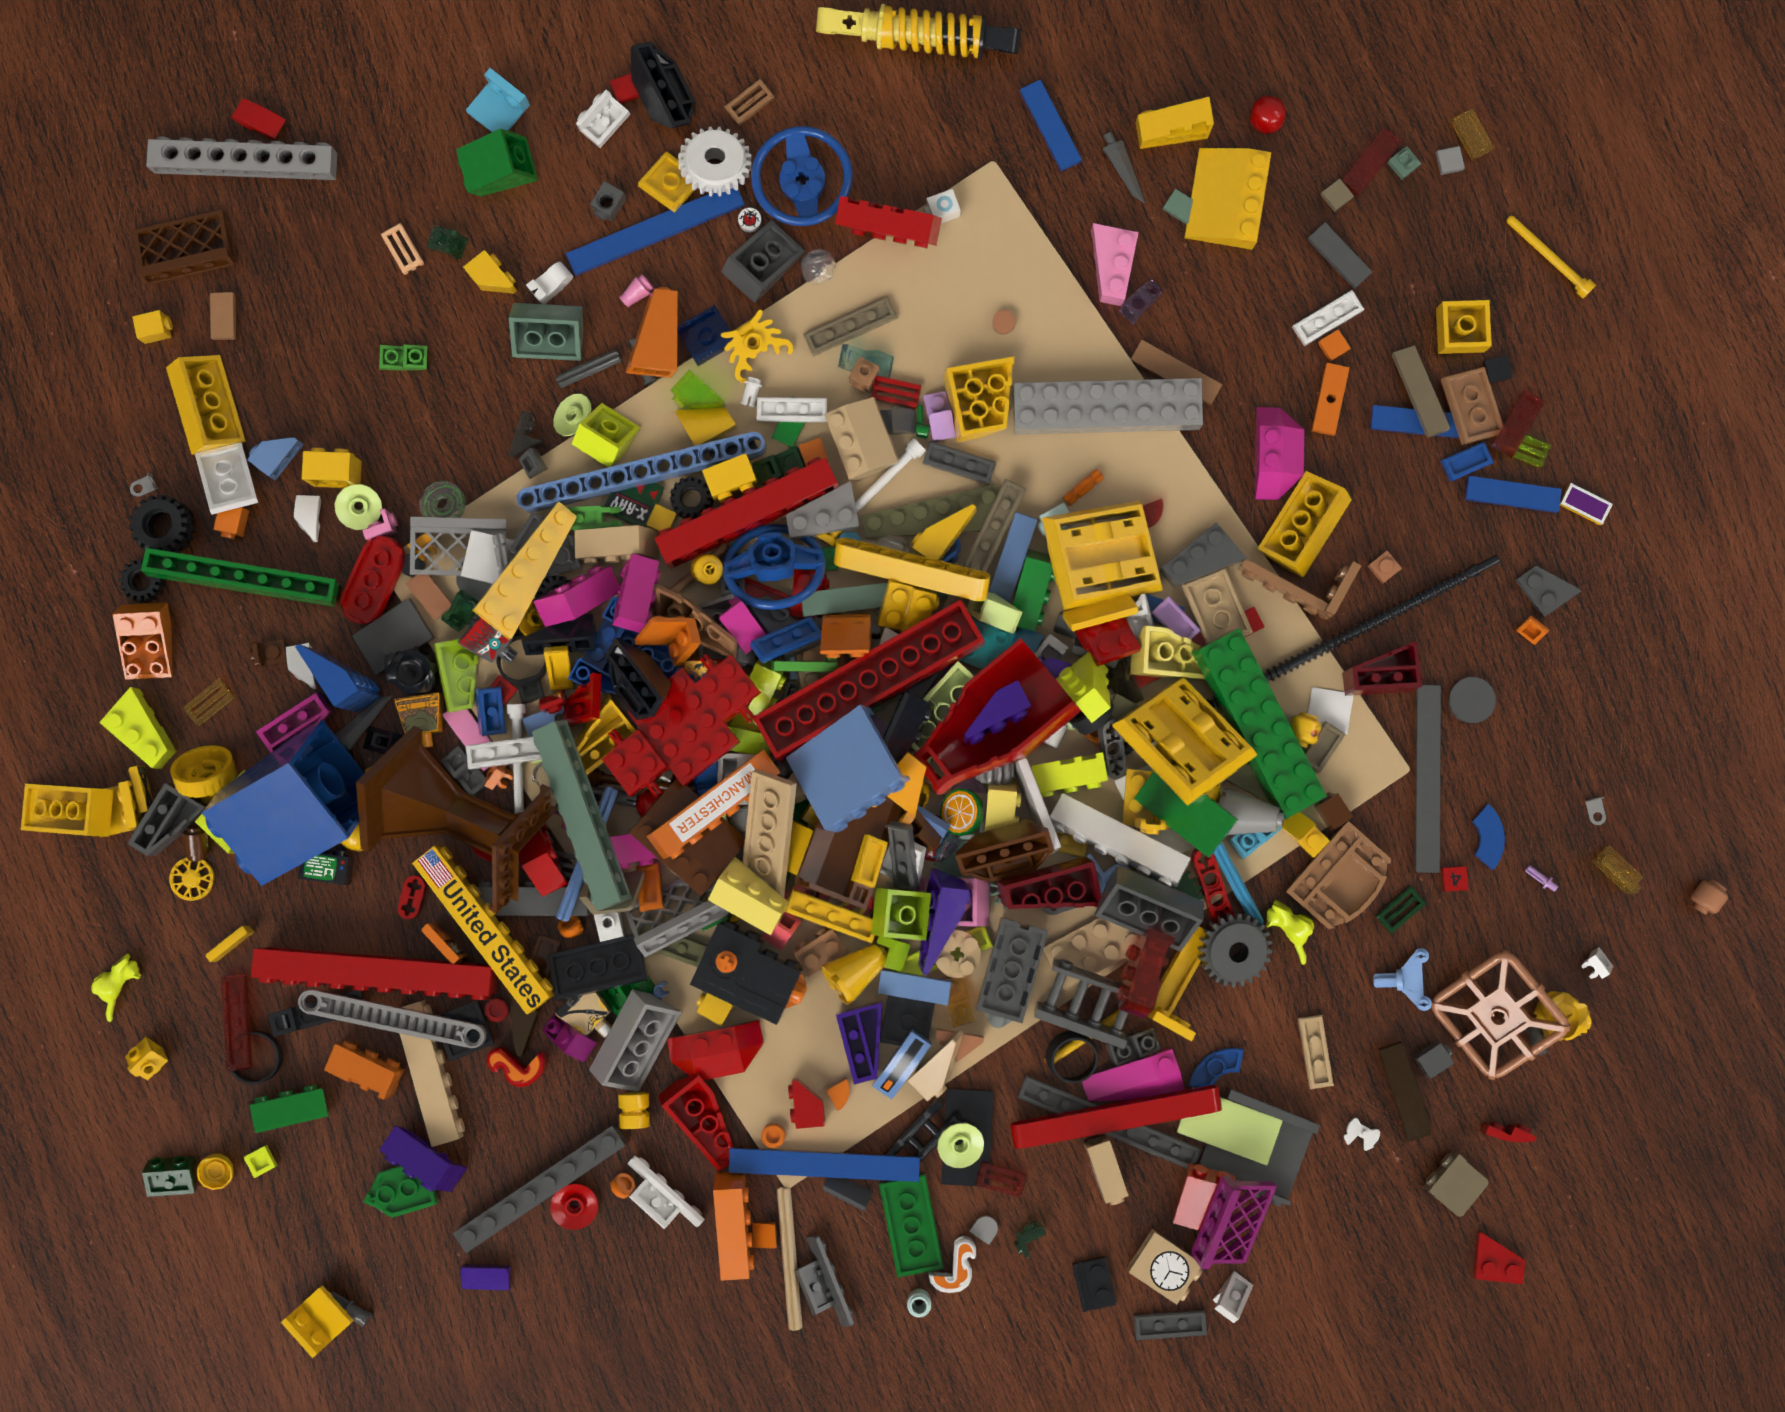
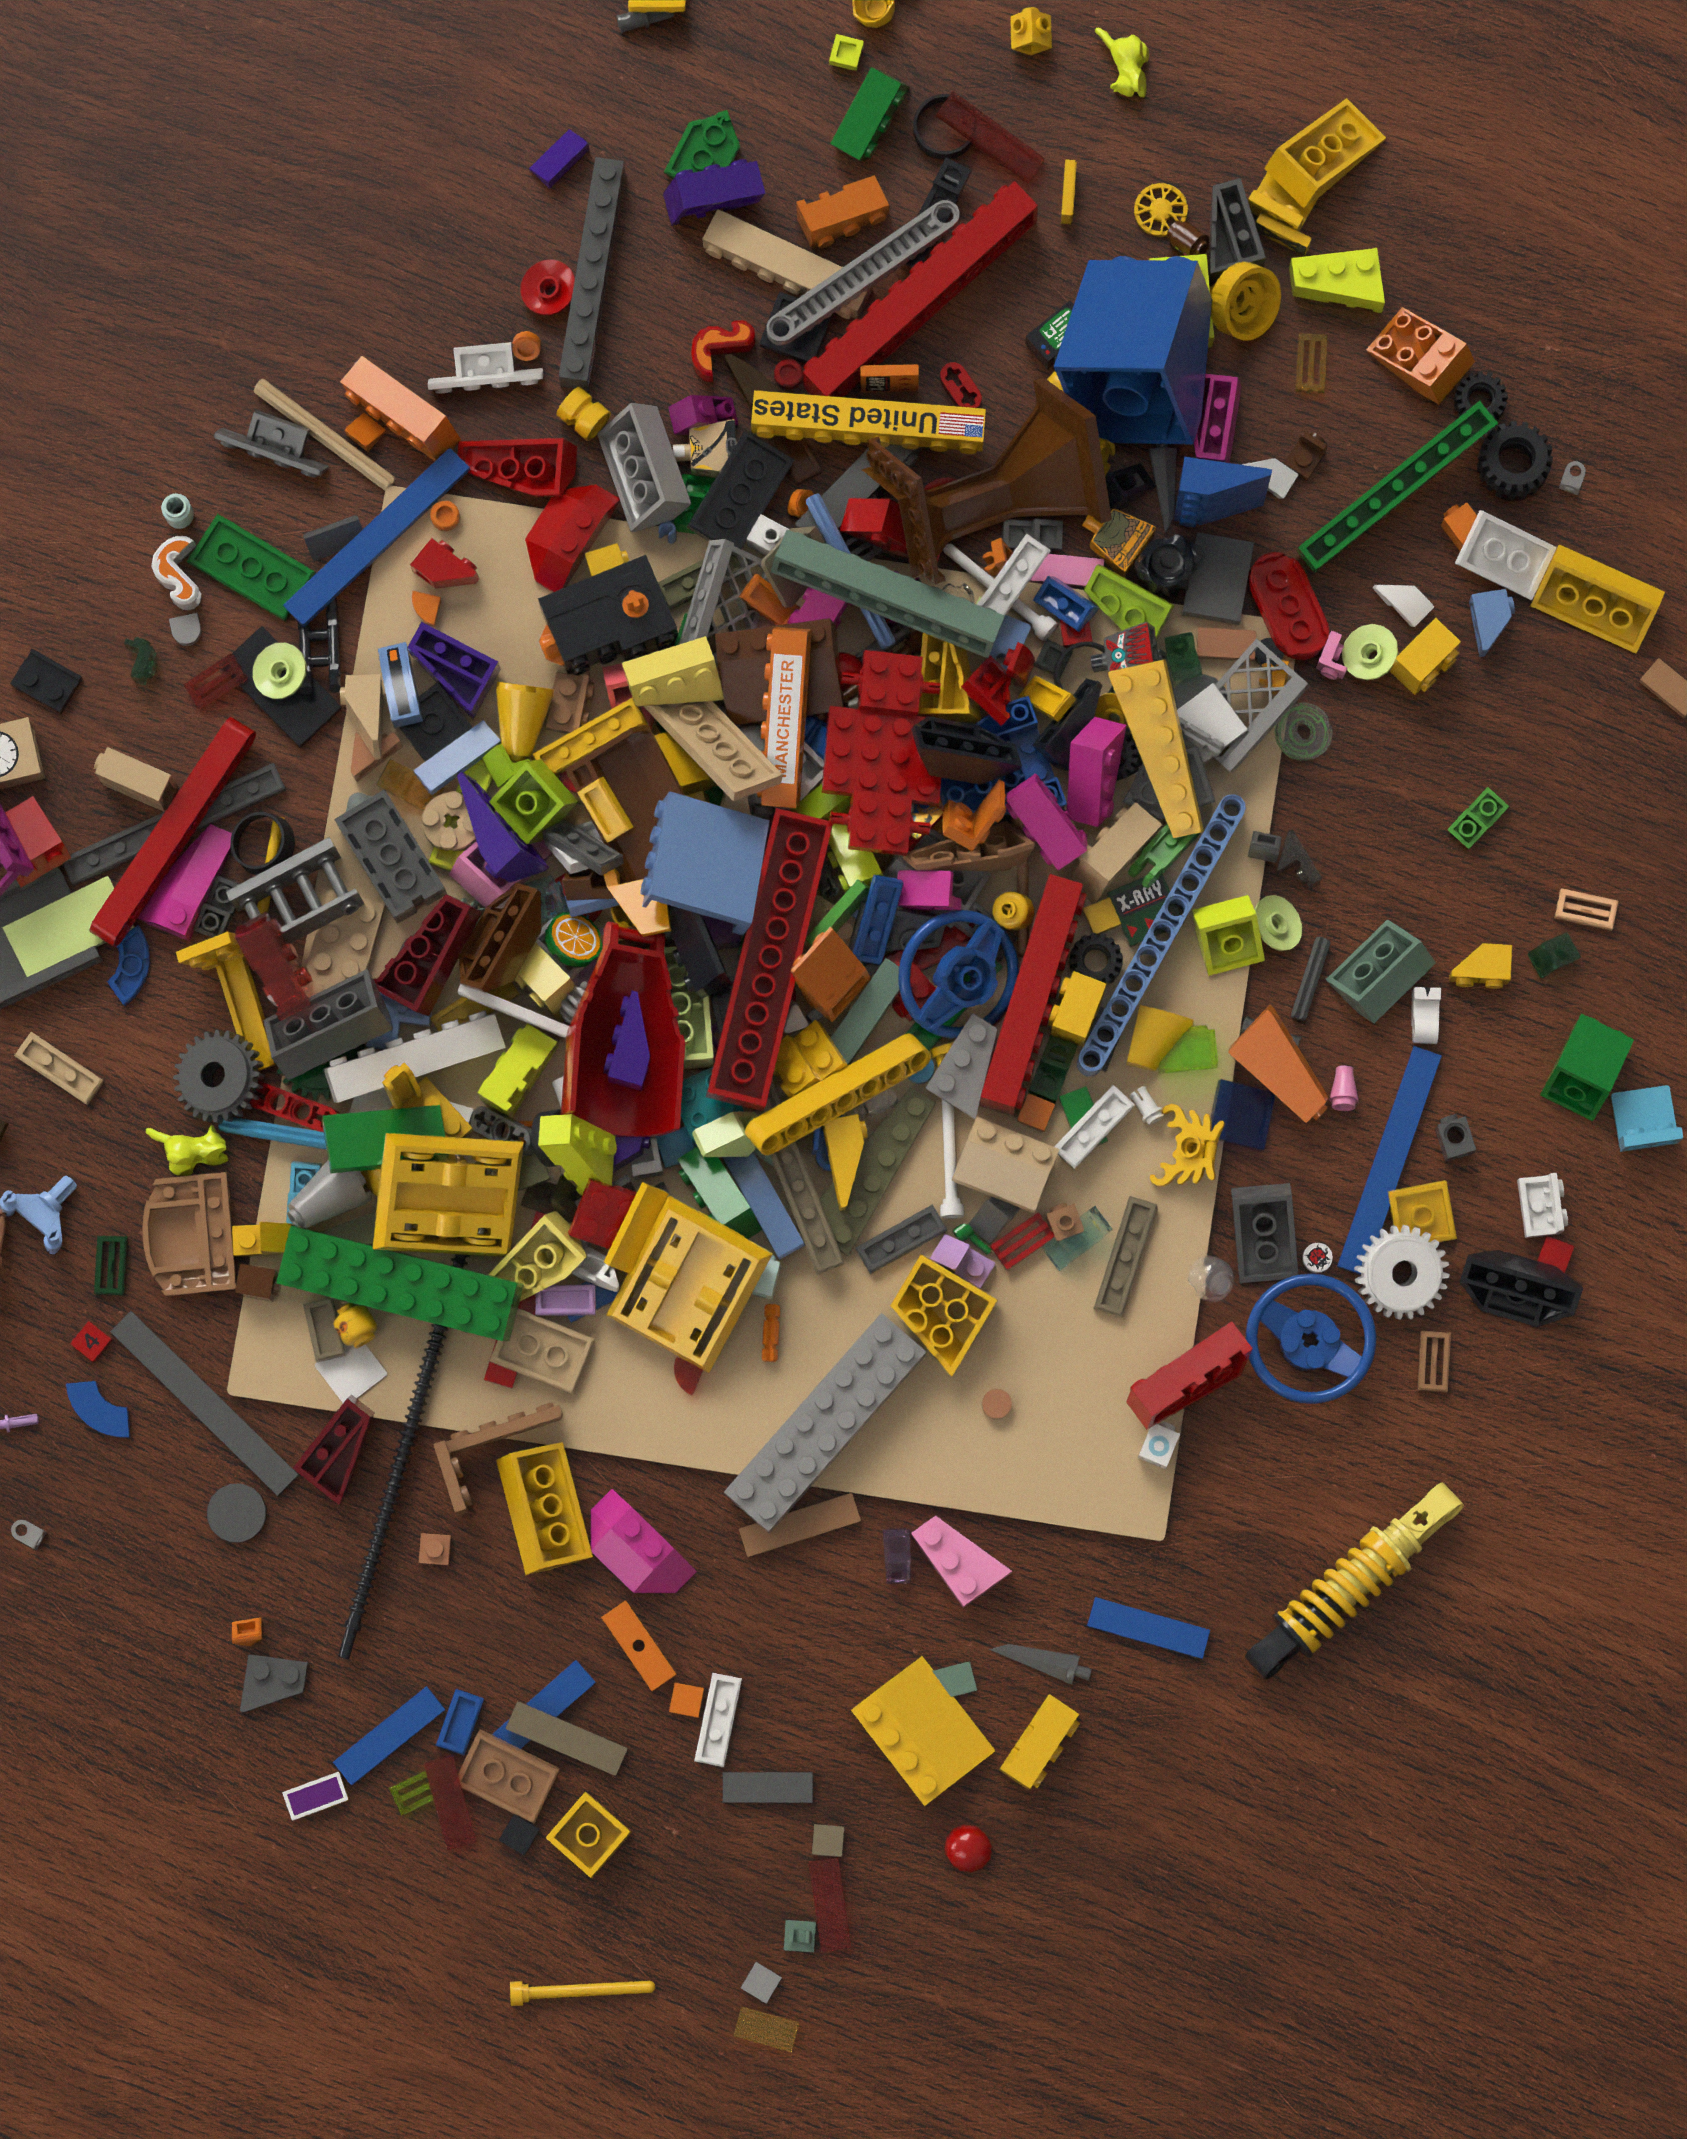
camera: 130 degrees right, 5 degrees down
(1204, 556) = (601, 1380): dark grey wedge -> none

